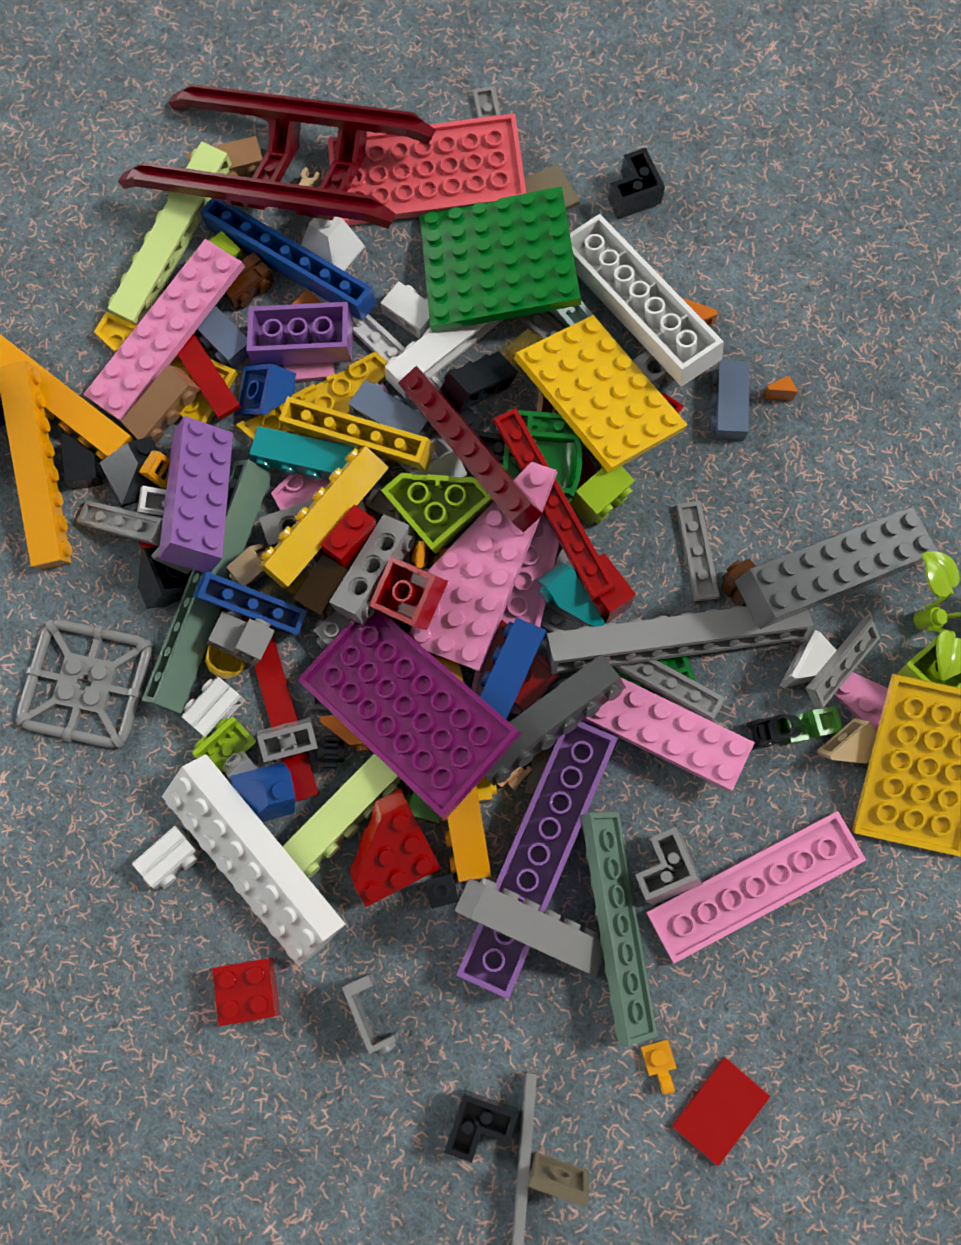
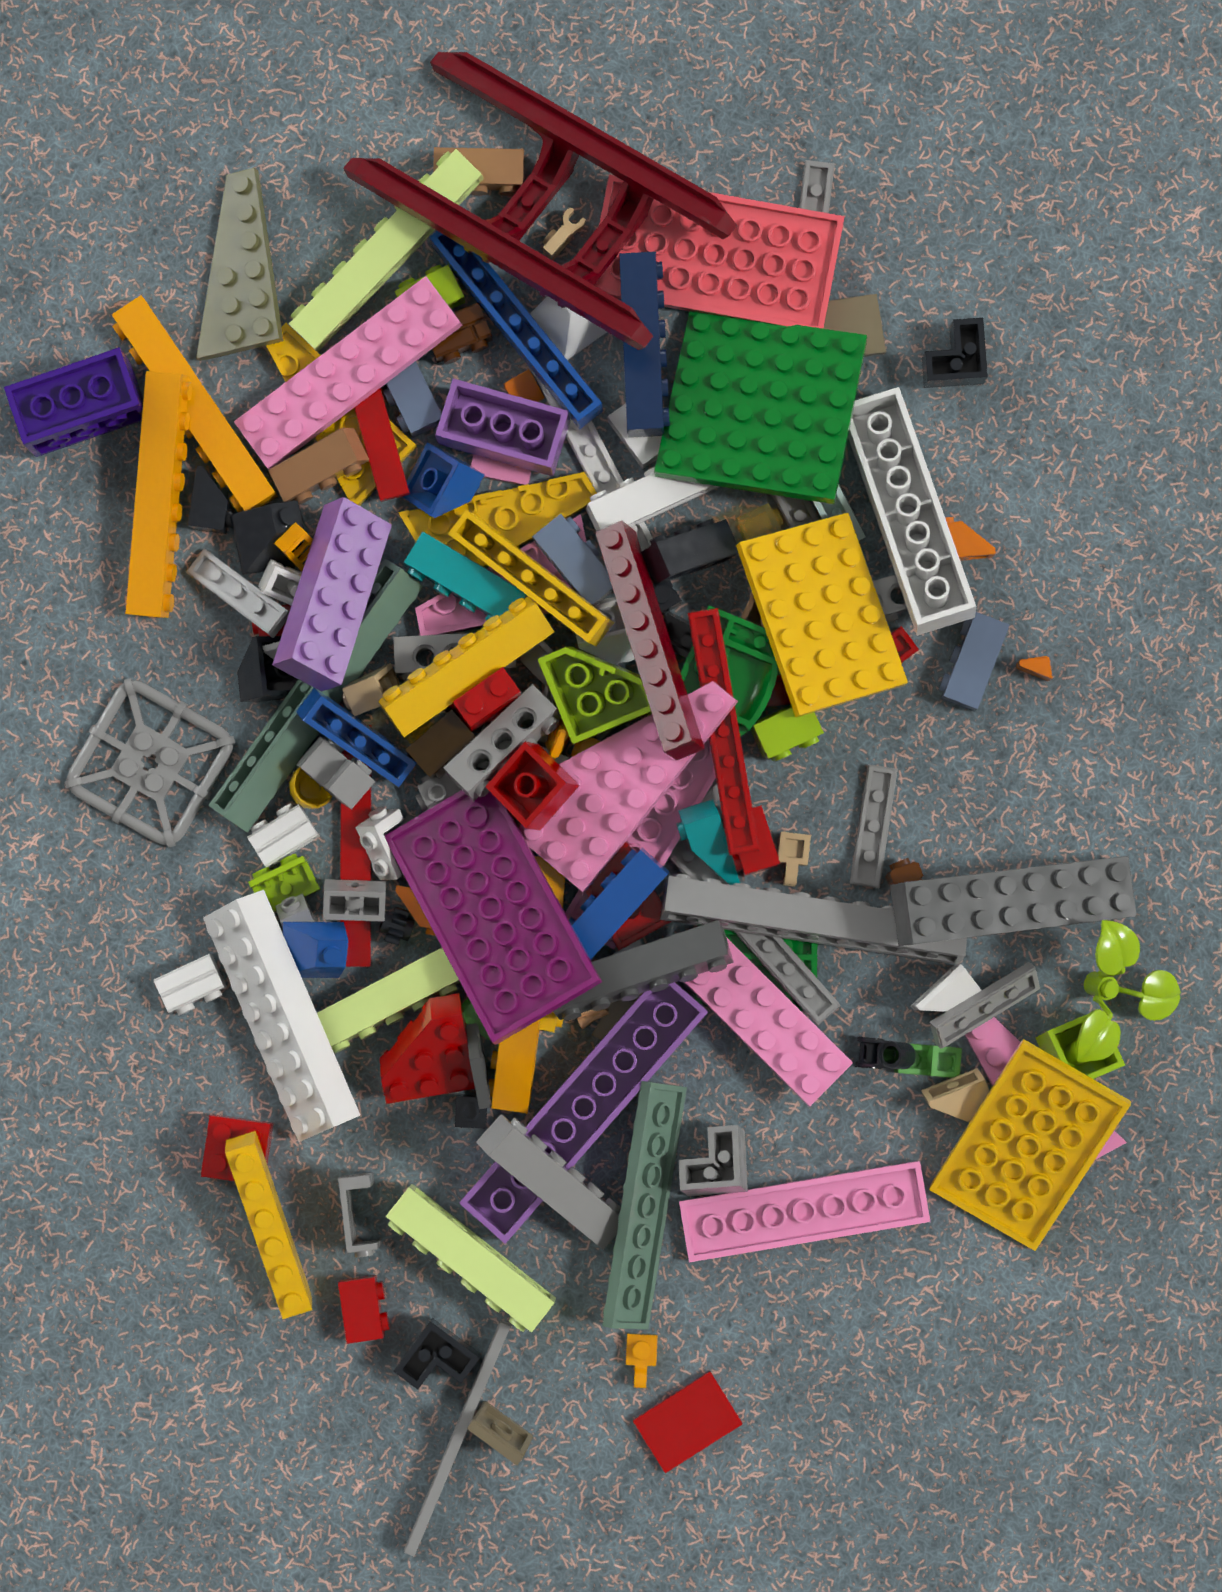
camera: 15 degrees right, 10 degrees up
(64, 296) = (241, 290): none -> olive wing
(291, 1051) = (268, 1224): none -> yellow brick
(293, 689) = (376, 846): none -> white bracket
(394, 247) = (643, 367): none -> dark blue brick
(399, 1102) = (362, 1309): none -> red brick
(436, 847) = (478, 1065): none -> dark grey tile
(482, 1022) = (471, 1258): none -> yellowish green brick
(644, 589) = (793, 851): none -> tan plate

